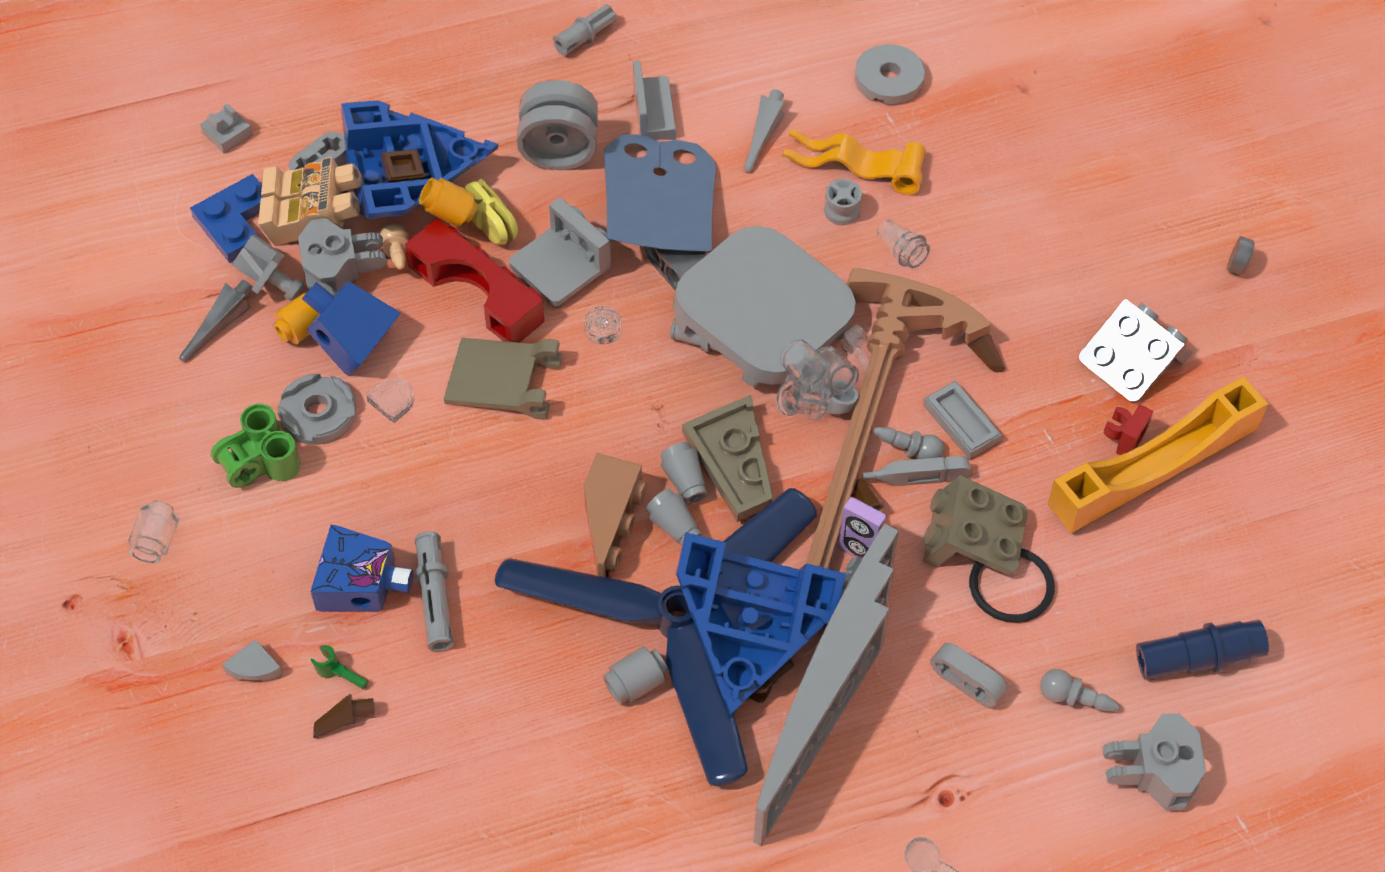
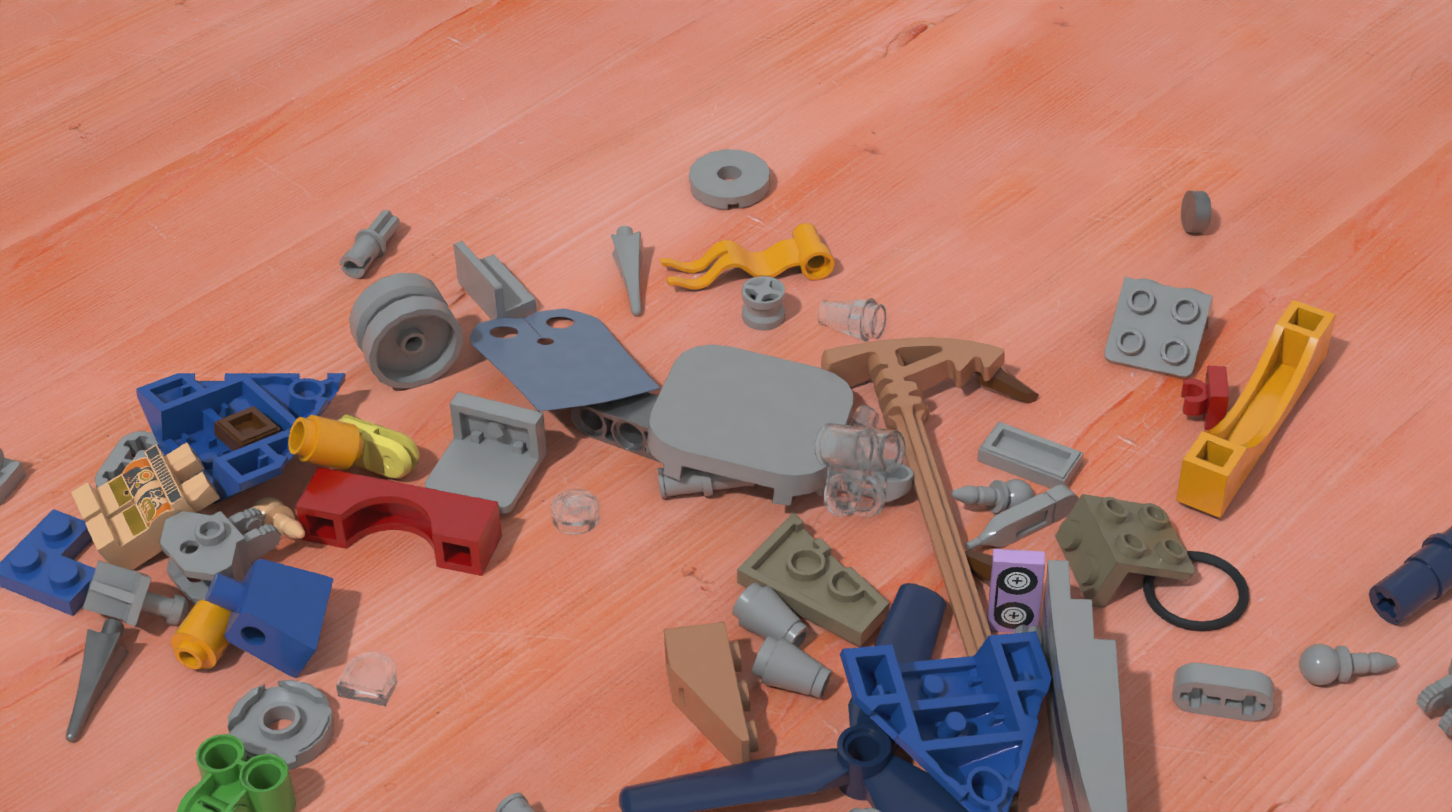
camera: 25 degrees left, 15 degrees down
(501, 374) = (490, 604): dark tan flag -> none

